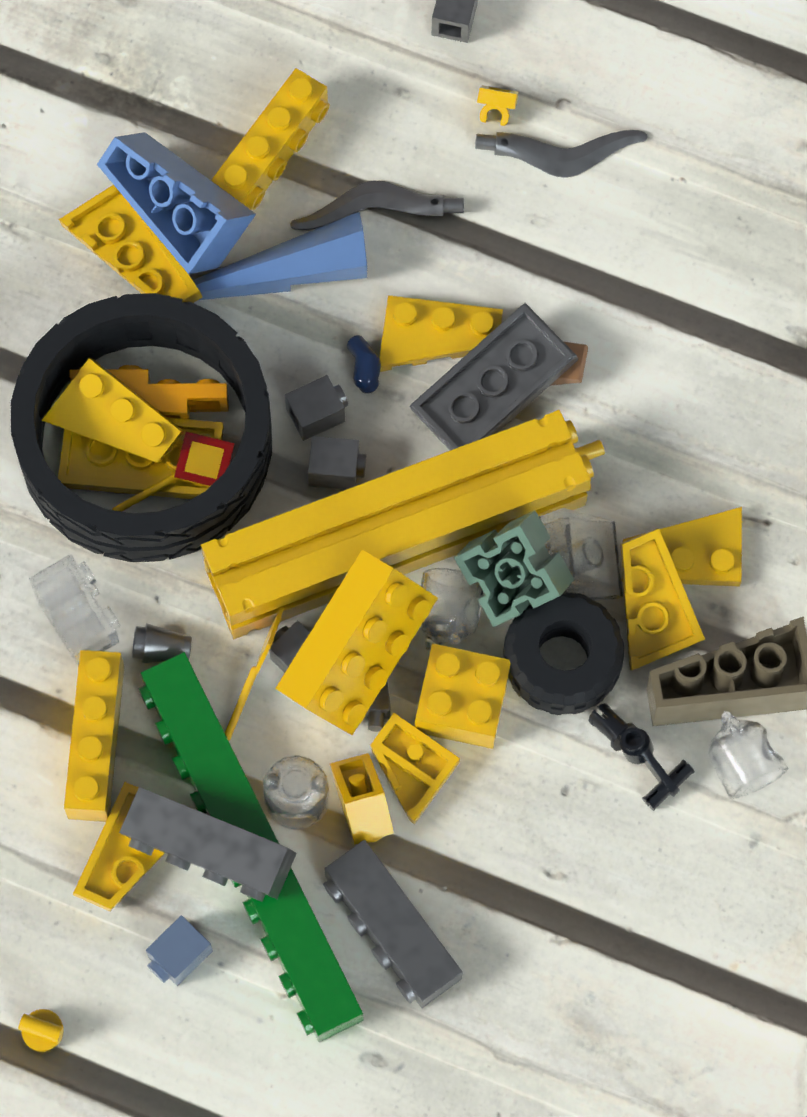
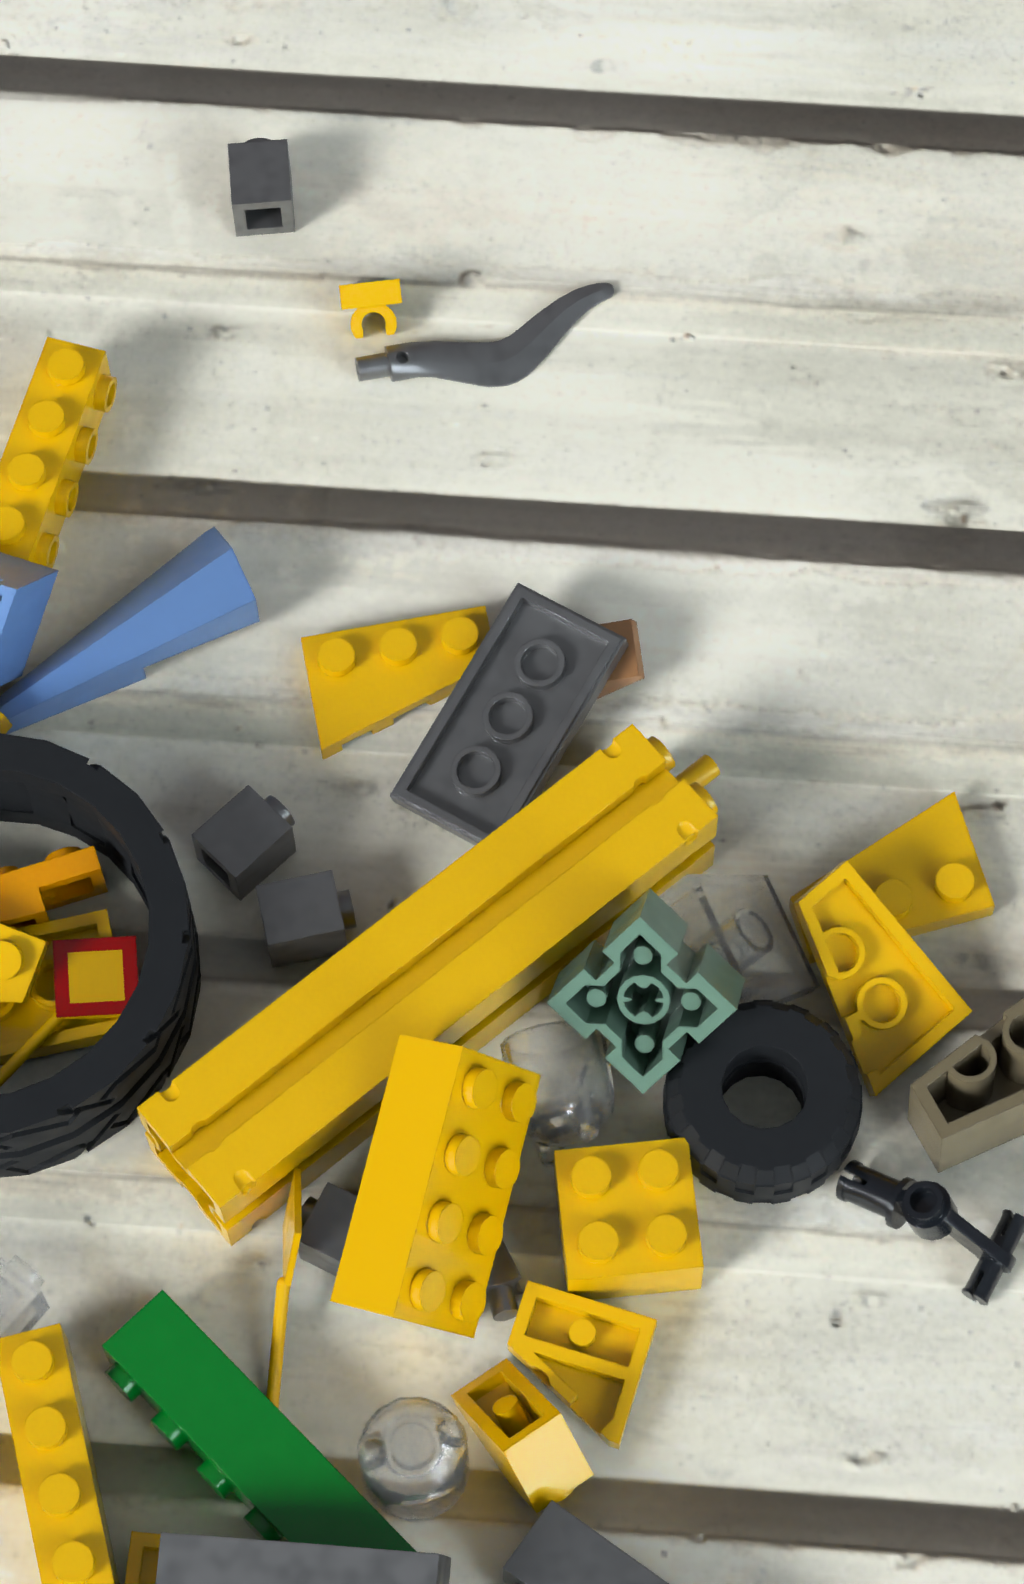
camera: 15 degrees left, 5 degrees down
(159, 644) = (115, 1290): flat silver cone -> none
(366, 366) = (303, 753): dark blue arm -> none
(379, 195) = (237, 493): flat silver piece -> none

